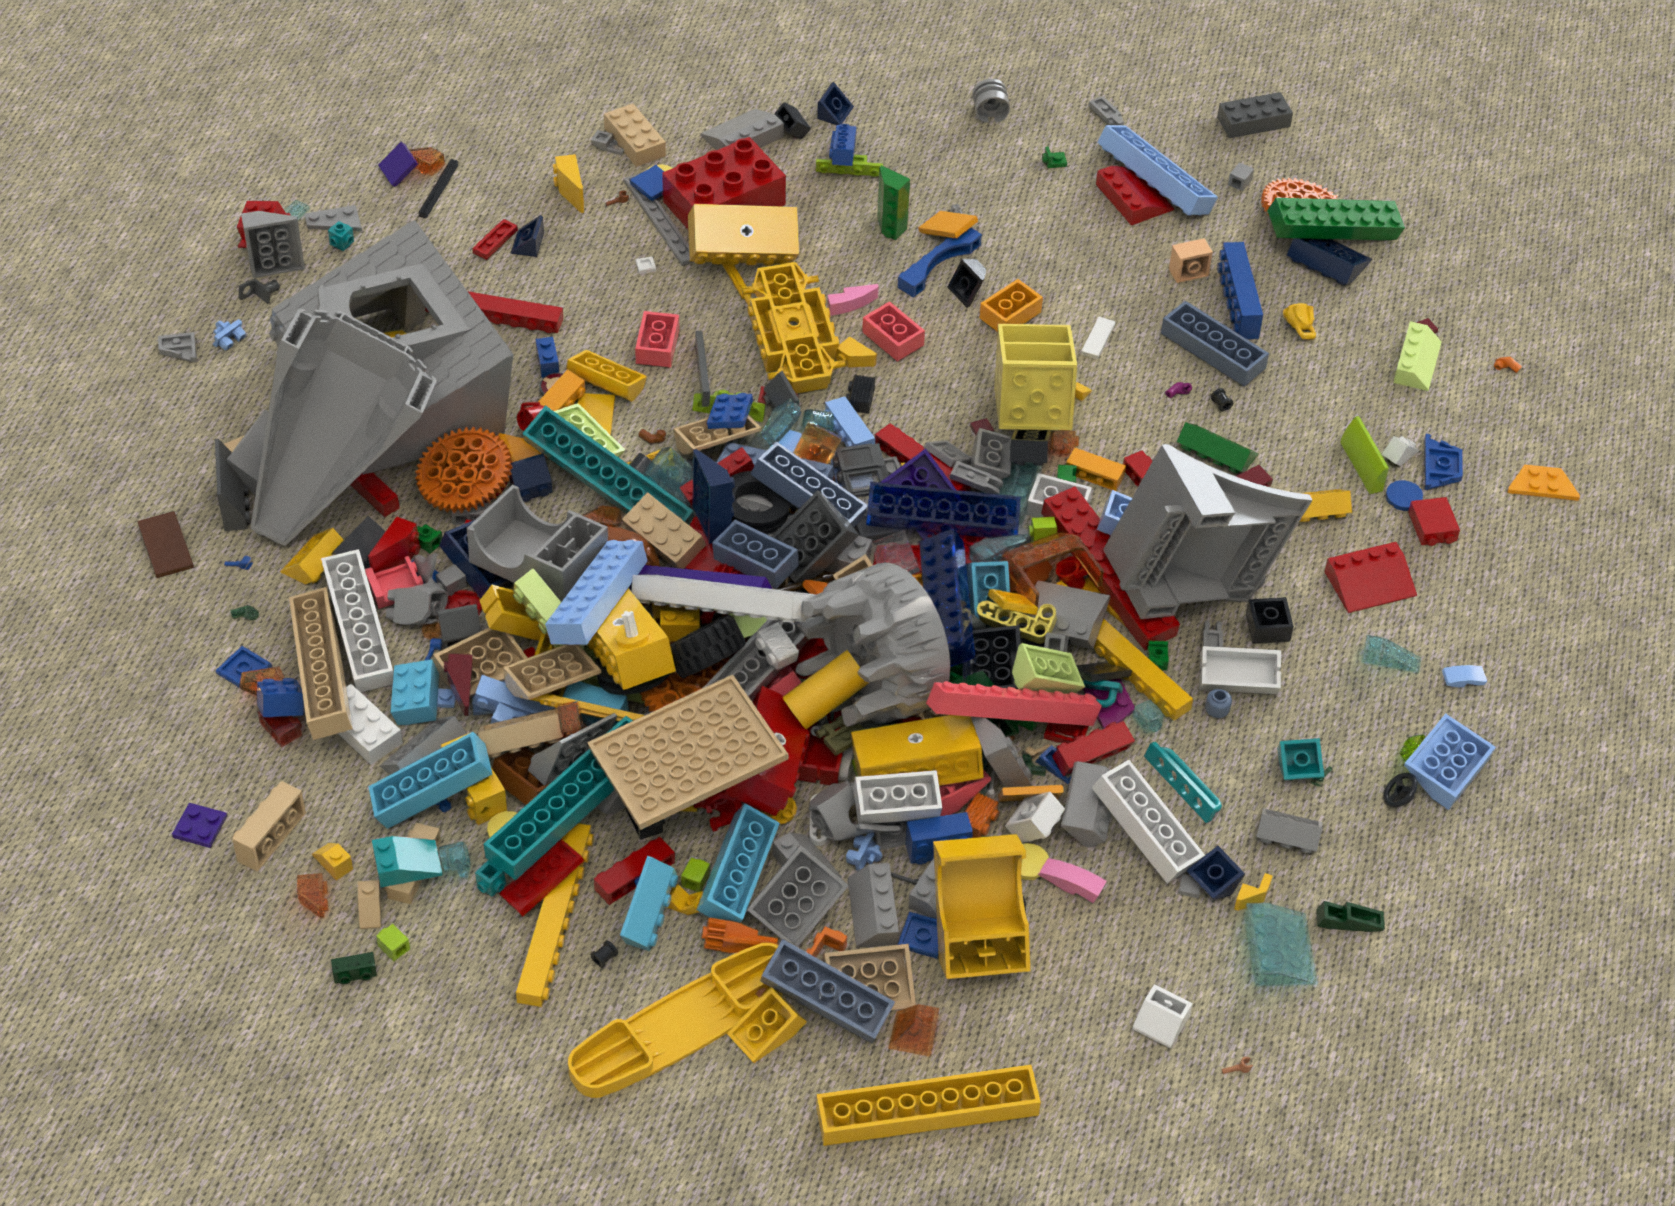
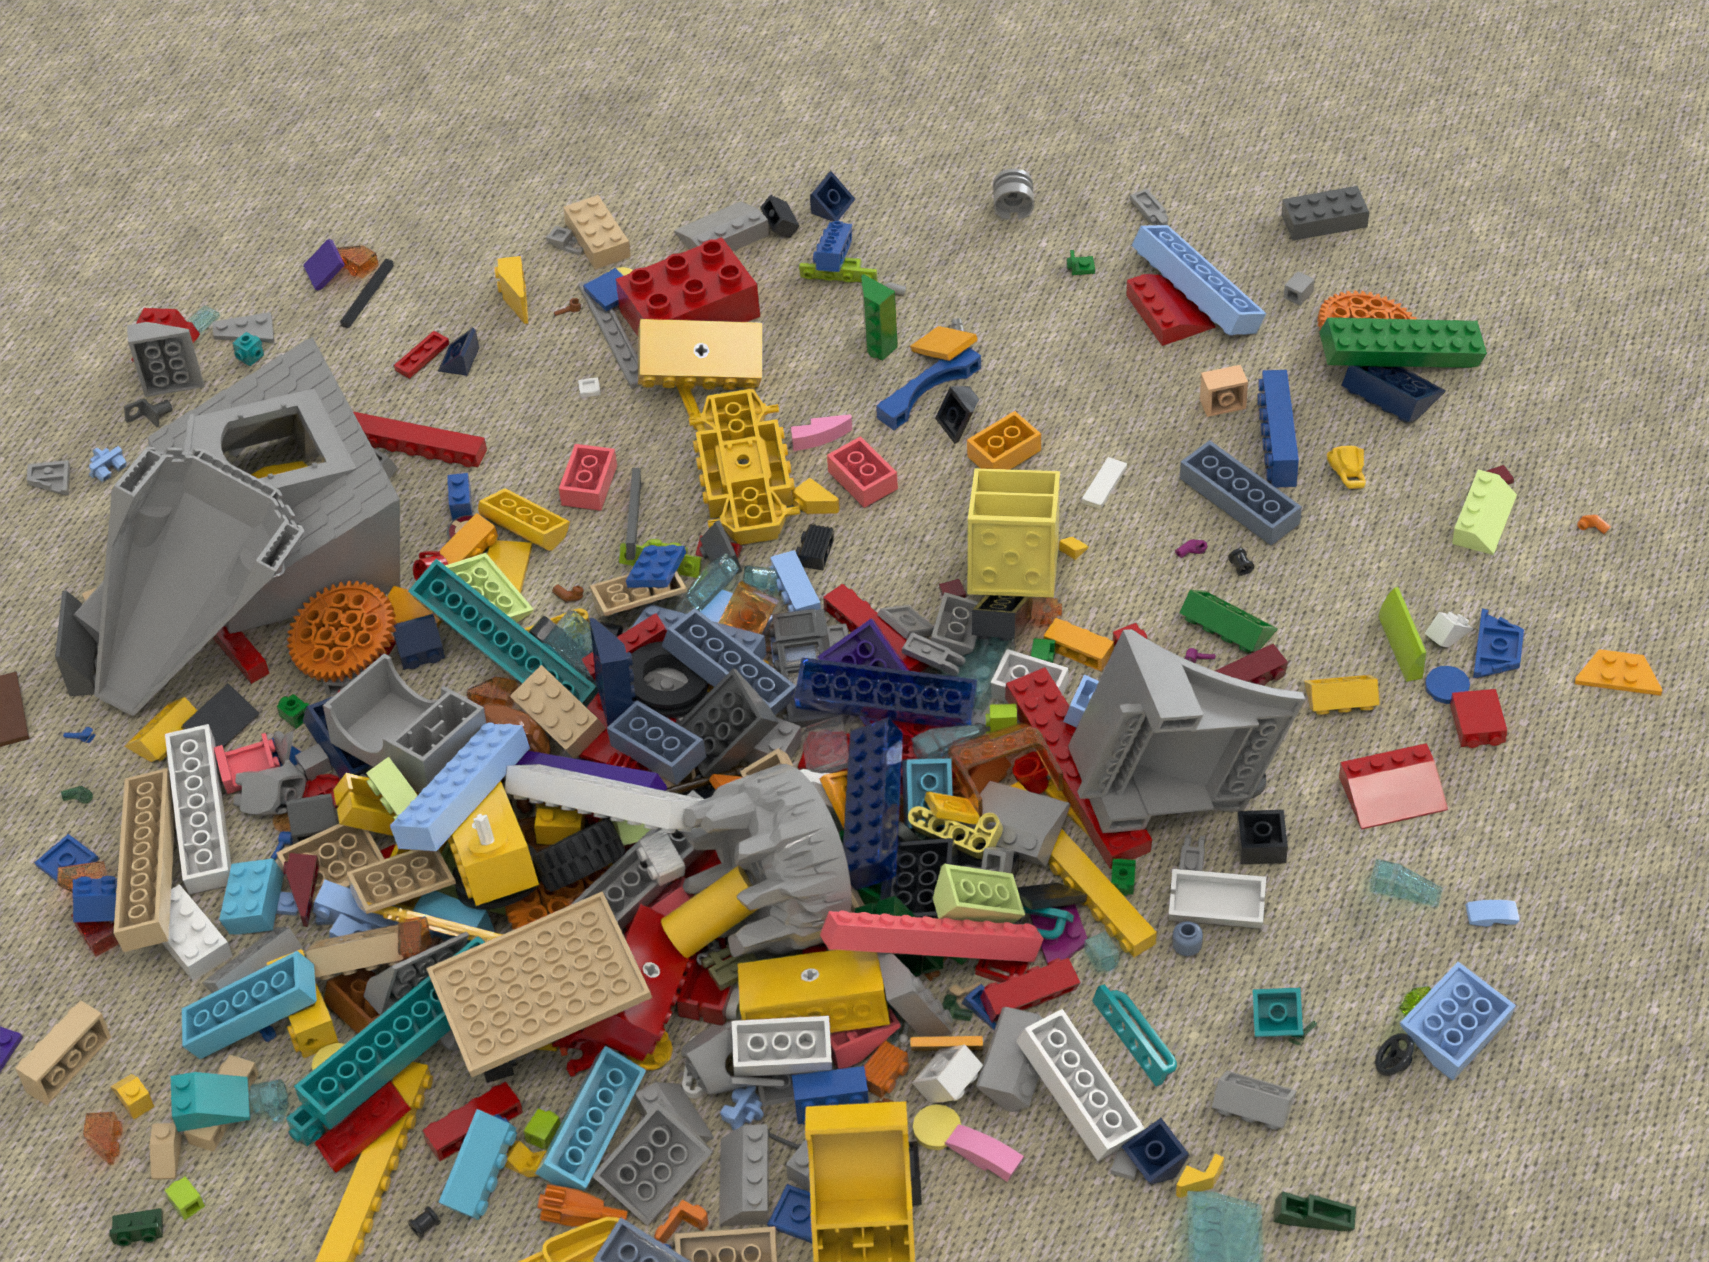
camera: 10 degrees right, 0 degrees up
(396, 543) = (256, 715): red slope -> none

